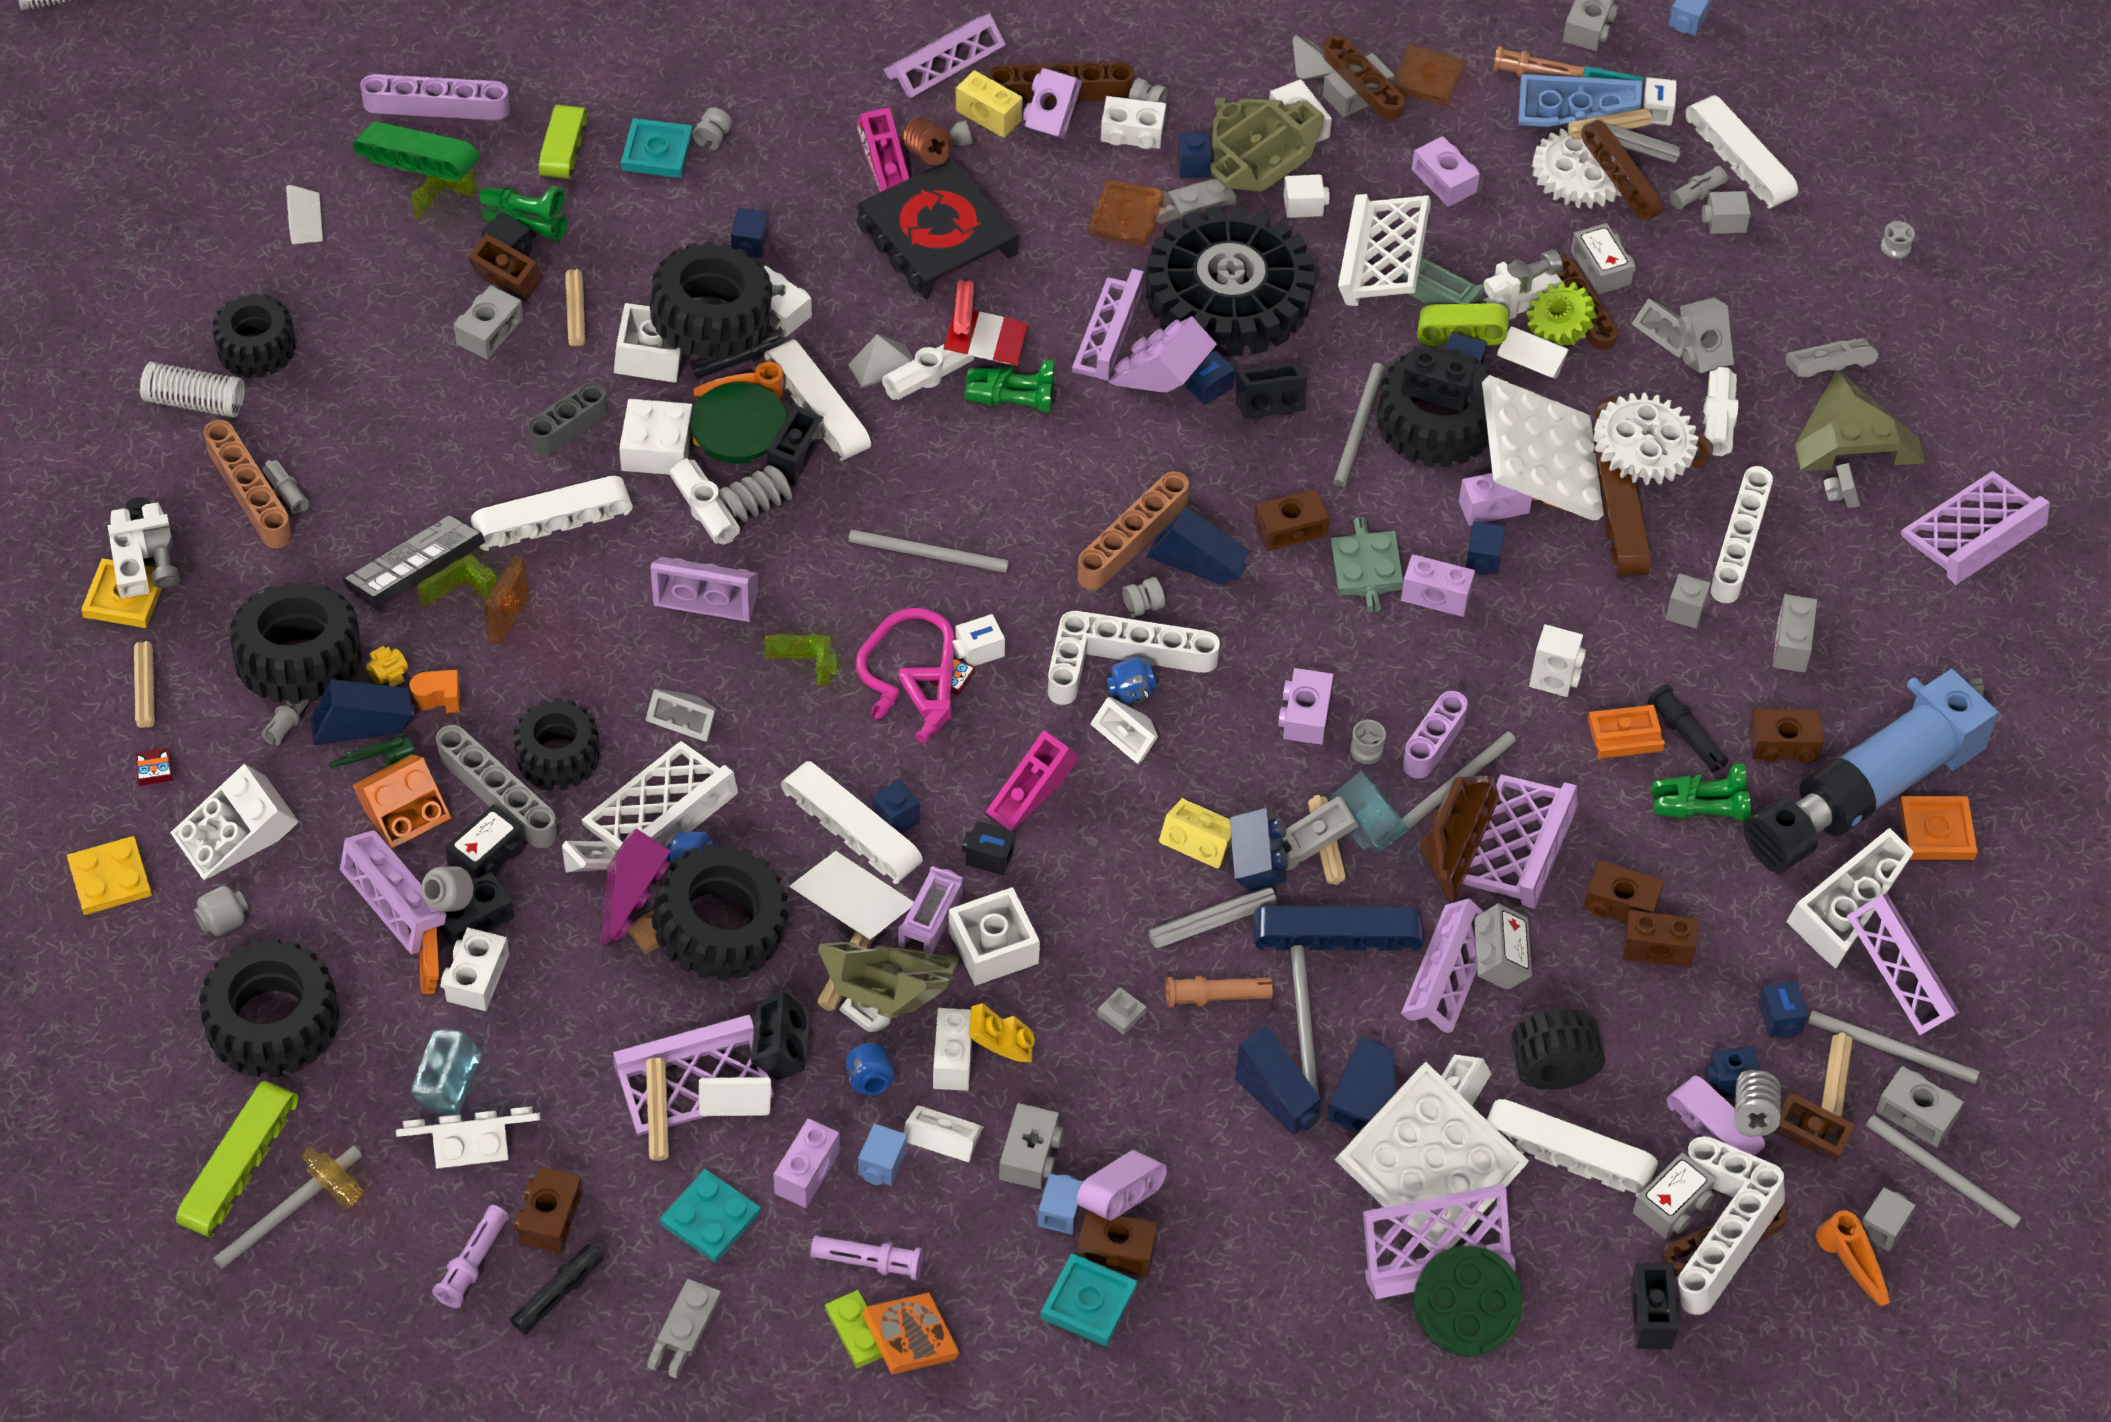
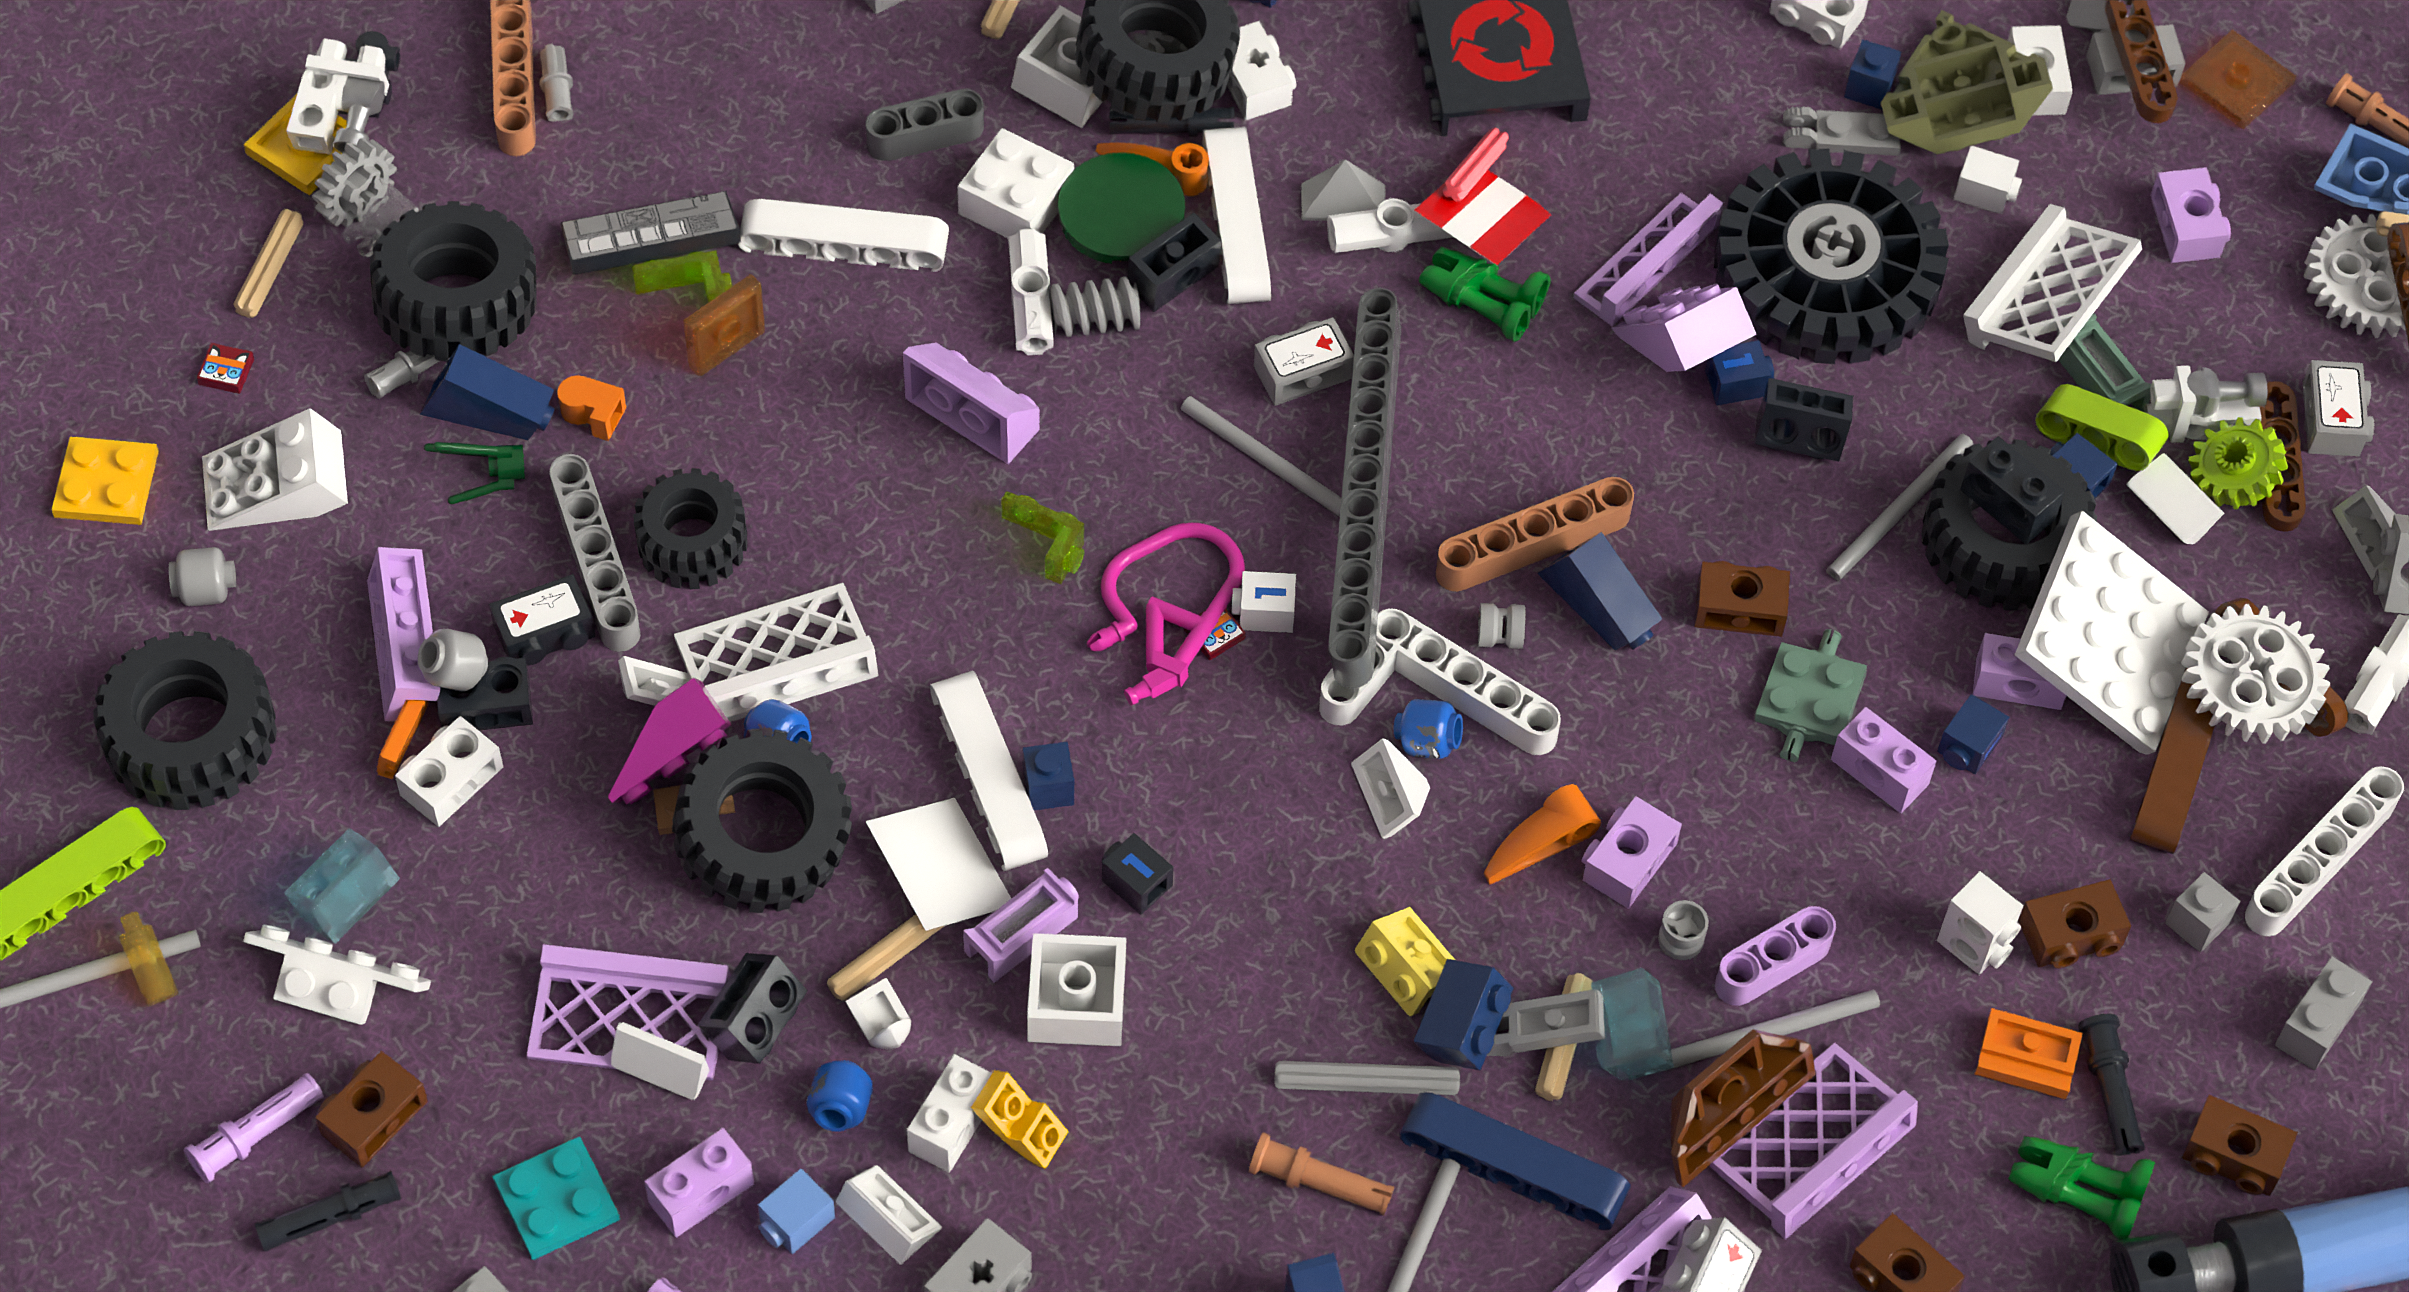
camera: 25 degrees right, 5 degrees up
(183, 603) = (353, 182): none -> light grey gear
(211, 621) = (378, 217): none -> clear plate
(387, 667) = (548, 352): yellow gear -> none
(402, 800) = (477, 526): orange slope -> none
(657, 1109) = (561, 1037): tan axle -> none
(681, 713) = (862, 547): light grey slope -> none
(887, 976) = (916, 991): olive wedge -> none
(917, 477) = (1303, 361): none -> brick
(1009, 541) = (1365, 489): none -> dark grey beam
(1033, 780) = (1237, 807): dark pink slope -> none
(1121, 1010) = (1189, 1151): light grey tile -> none
(1126, 212) = (1747, 117): clear orange plate -> none
(1249, 709) = (1553, 828): none -> orange piece
(1614, 639) = (2091, 907): none -> reddish brown brick

